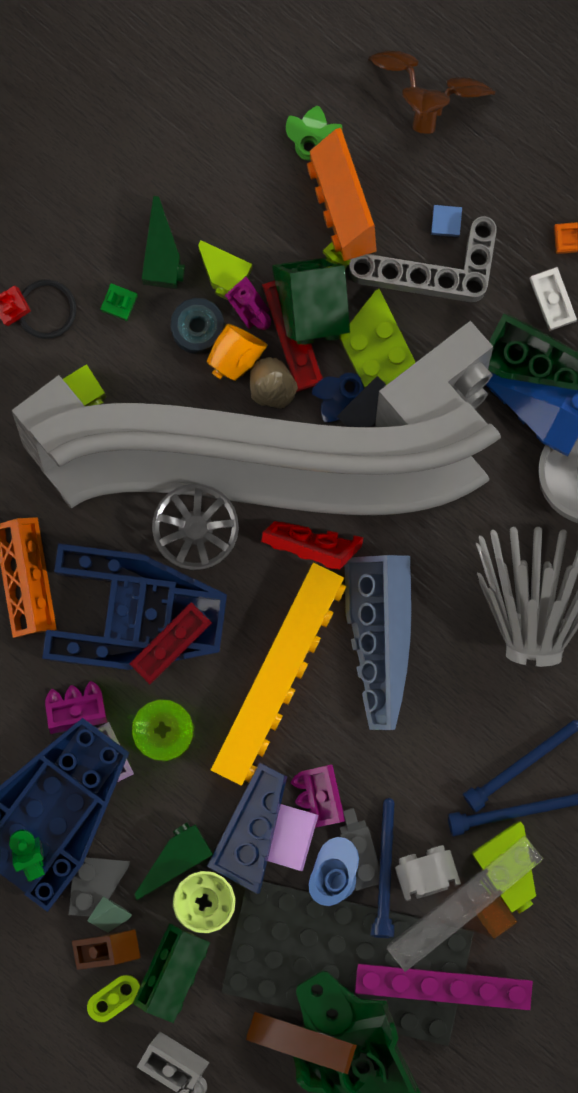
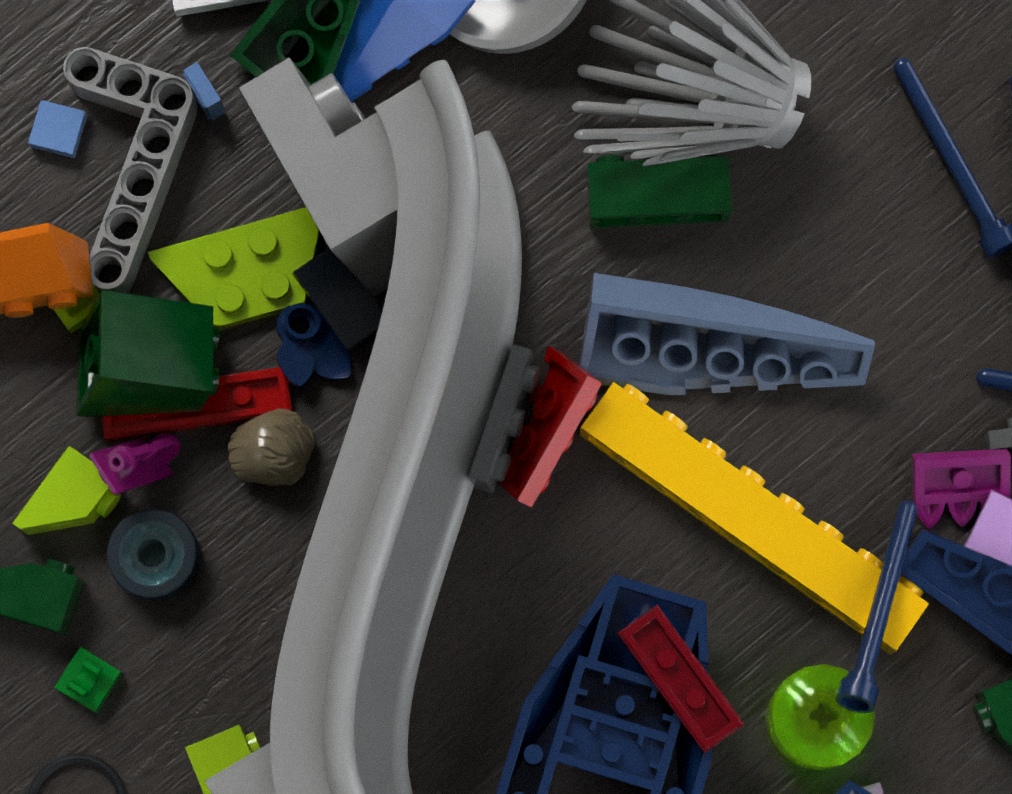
camera: 75 degrees left, 5 degrees down
(180, 747) = (859, 688): none -> dark blue piece
(195, 526) = (489, 610): flat silver wheel -> none
(235, 352) = (210, 499): light orange helmet -> none
(312, 517) = (505, 419): none -> dark grey plate
(468, 599) = (658, 194): none -> dark green brick
(483, 303) = (204, 91): none -> medium blue tile

